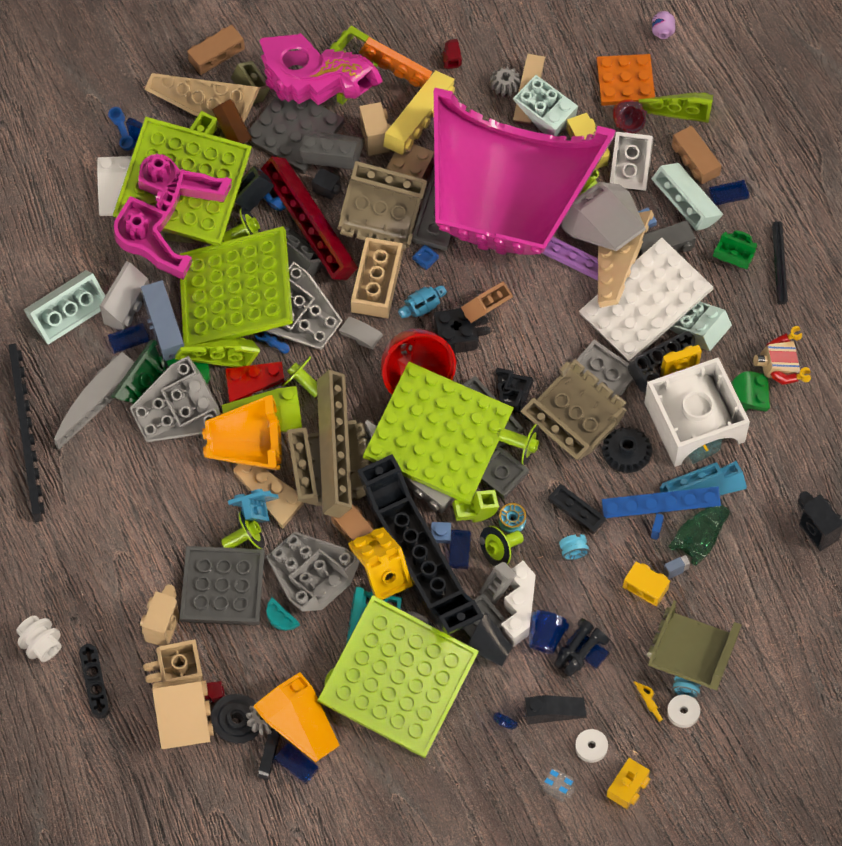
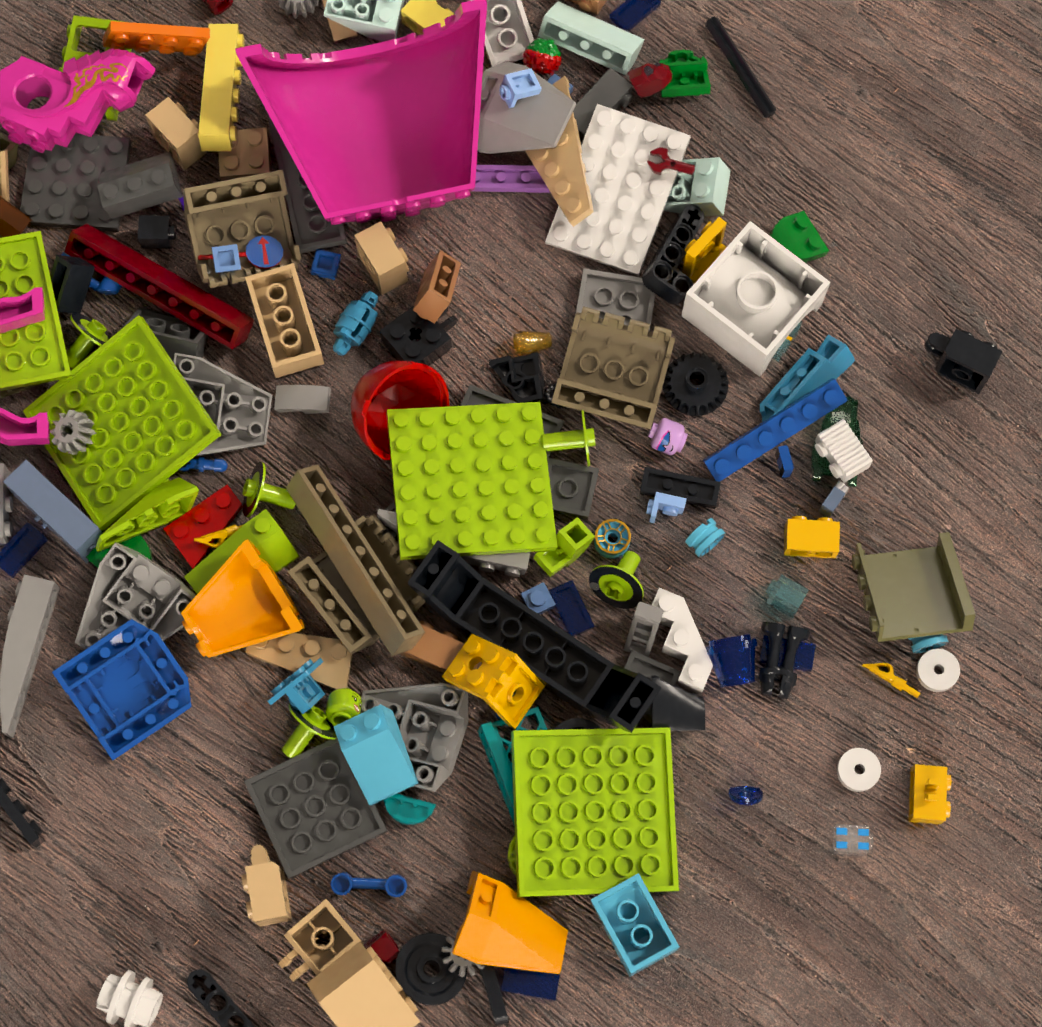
camera: 30 degrees left, 10 degrees up
(141, 375) = (67, 592): dark green wing -> none
(146, 450) = (126, 686): none -> blue wedge
(201, 279) = (72, 432): none -> light grey gear
(213, 641) = (343, 883): none -> blue bar
(258, 389) = (221, 535): none -> yellow hand
(275, 533) = (342, 705): none -> lime head
(278, 568) = (376, 753): none -> medium azure slope
(360, 219) = (226, 258): none -> medium blue plate
(383, 761) = (634, 925): none -> medium azure slope
(385, 227) = (261, 252): none -> blue piece
(463, 268) = (381, 257): none -> tan brick
(532, 369) = (529, 342): none -> clear yellow cone
(553, 708) = (792, 749): black slope -> none
(561, 513) = (668, 503): none -> light blue bracket
(586, 471) = (667, 436): none -> lavender head
(607, 611) = (786, 595): none -> clear light blue brick
(613, 199) = (519, 86): none -> light blue bracket
(645, 192) = (542, 56): none -> red piece
(686, 296) = (668, 163): none -> dark red bar
(698, 536) = (843, 451): none -> white brick
(709, 239) = (650, 78): none -> dark red rock
(781, 360) = (812, 186): torso -> none

